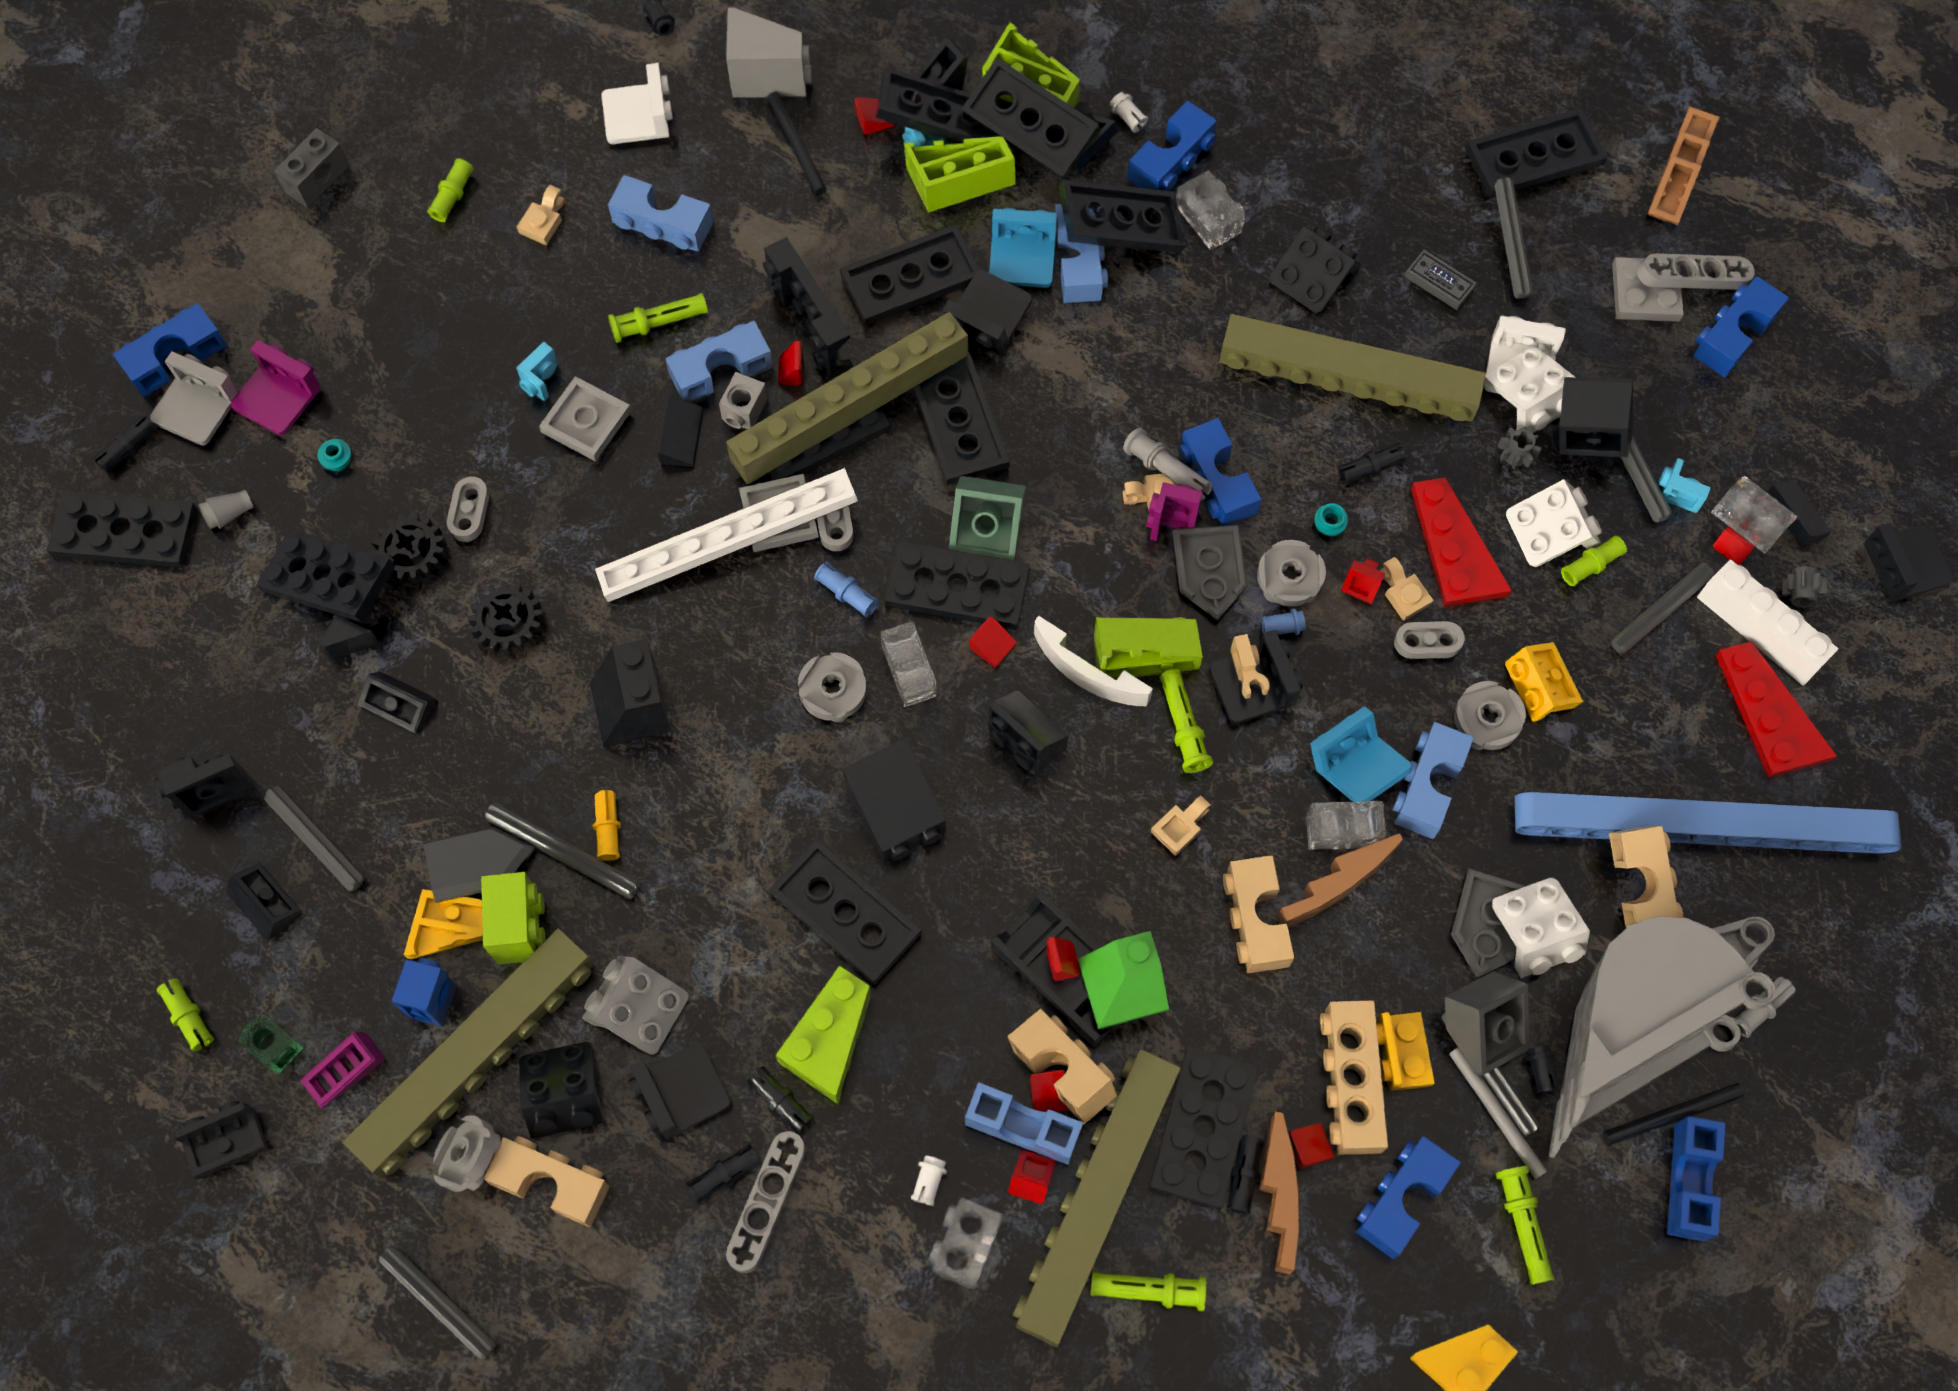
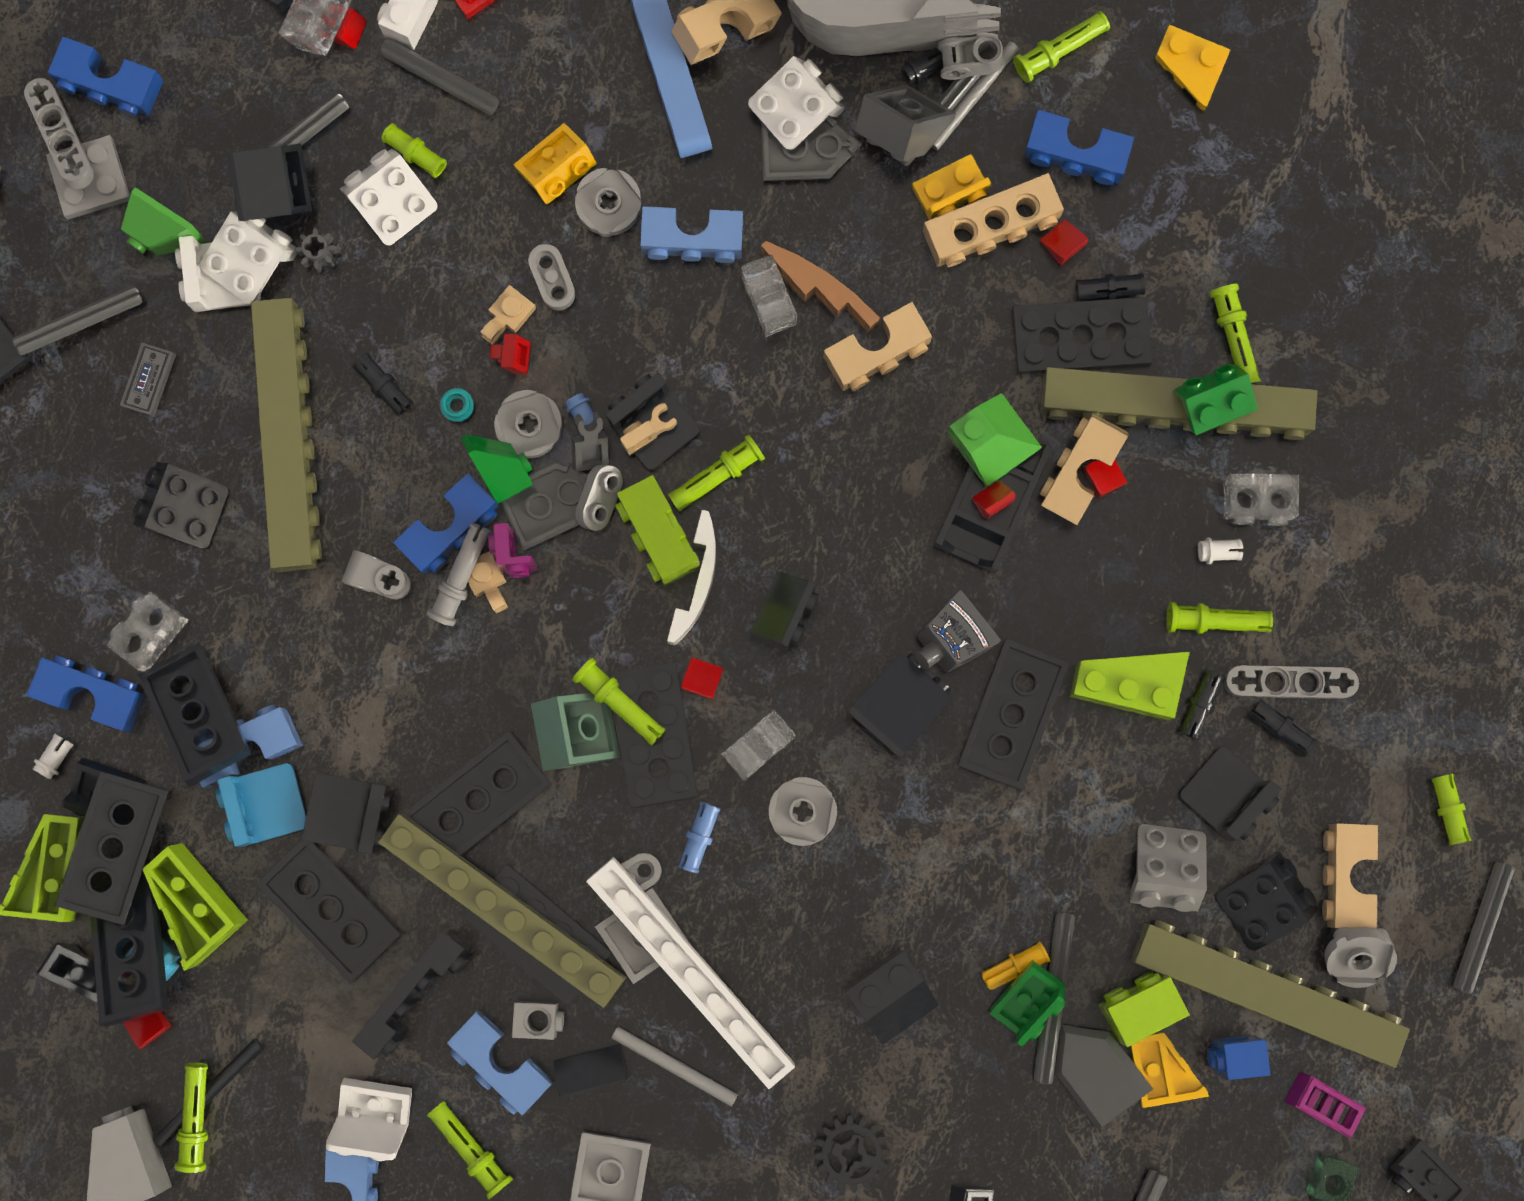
camera: 110 degrees left, 15 degrees up
(567, 820) = (1030, 1002): none -> green bracket
(568, 1316) = (1451, 809): none -> lime pin
(652, 502) = (674, 1066): none -> light grey bar
(713, 245) = (370, 1119): none -> white bracket
(767, 117) = (192, 1160): none -> lime pin
(791, 366) = (476, 990): red slope -> none
(865, 1135) = (1204, 618): none -> lime pin
(942, 878) = (955, 635): none -> dark grey torso
(1011, 550) = (607, 691): none -> lime pin
(1031, 1176) = (1179, 465): red slope -> none
(1034, 1130) = (1144, 484): medium blue arch -> none
(1086, 1225) = (1217, 398): none -> green bracket
(1179, 827) = (822, 444): tan plate -> none
(1192, 401) = (372, 575): none -> light grey piece
(1198, 607) = (598, 496): none -> light grey plate
(1250, 613) = (591, 446): none -> dark grey plate
(1259, 523) = (499, 466): none -> green slope
(1280, 1179) = (1106, 256): medium nougat slope -> none
(1357, 759) = (700, 301): dark azure bracket -> none
(1456, 550) = (445, 280): red wing -> none
(1540, 1106) = (967, 56): none -> light grey piece
(1585, 321) = (154, 226): none -> bright green slope
(1682, 491) = (310, 89): medium azure bracket -> none

